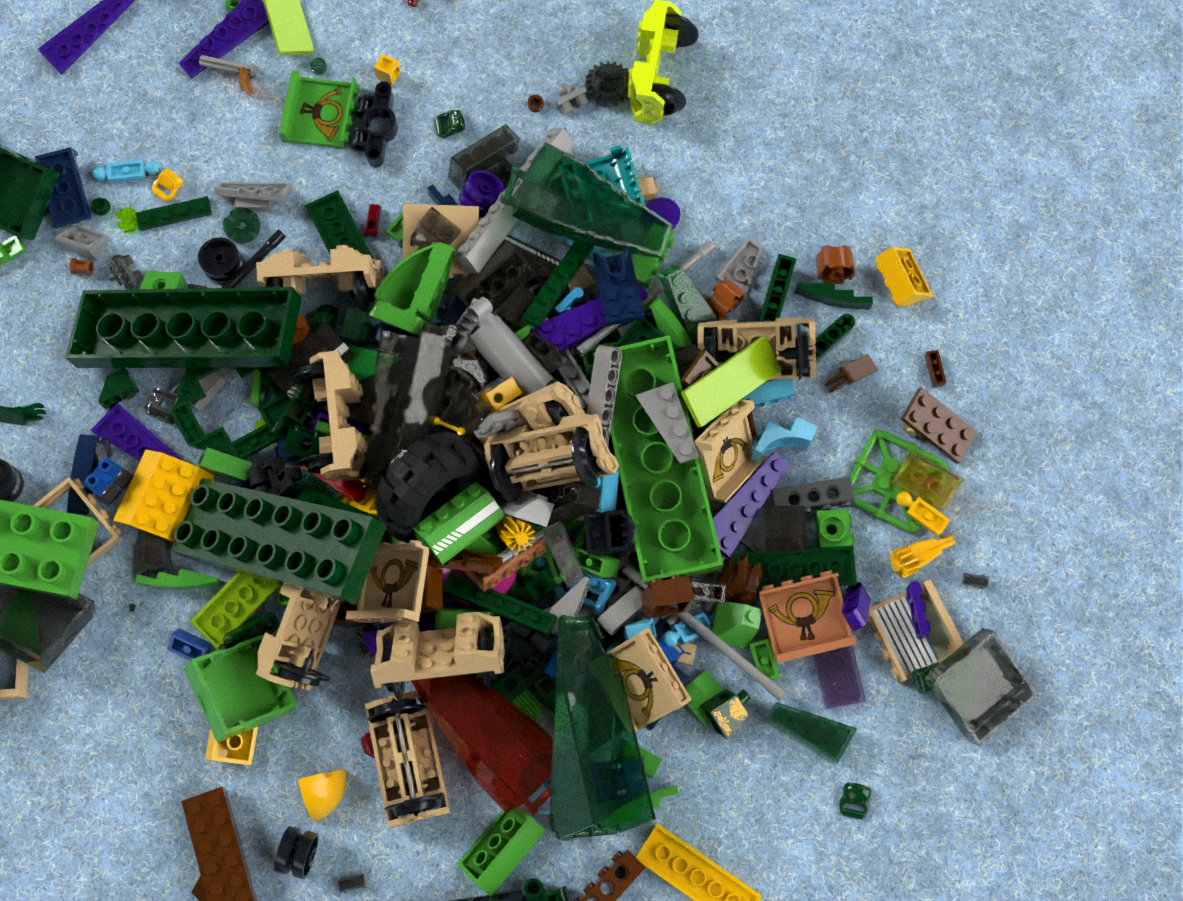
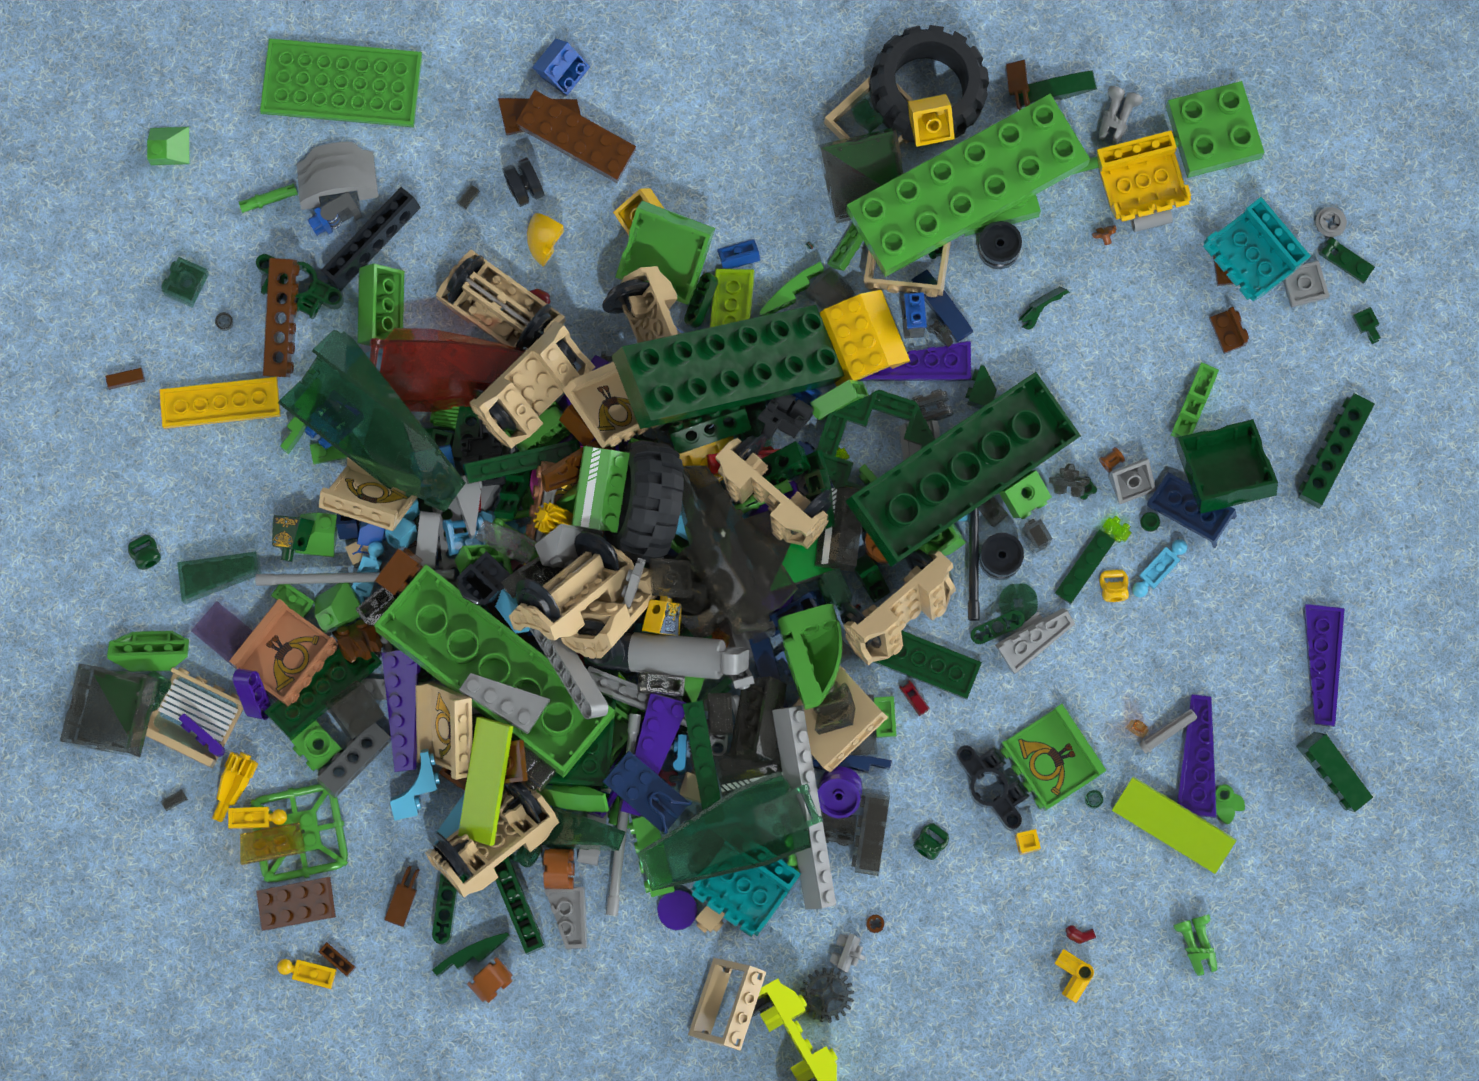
camera: 140 degrees right, 5 degrees up
(105, 578) = (846, 249): none -> bright green plate
(184, 252) = (1036, 536): none -> clear smoke brick
(270, 212) = (1013, 625): none -> dark green beam
(460, 431) = (660, 558): yellow hinge -> none
(693, 138) = (712, 998): none -> tan window
(903, 276) = (425, 1022): yellow slope -> none
(911, 713) = (148, 650): none -> bright green wedge
(964, 375) = (308, 972): none -> yellow plate

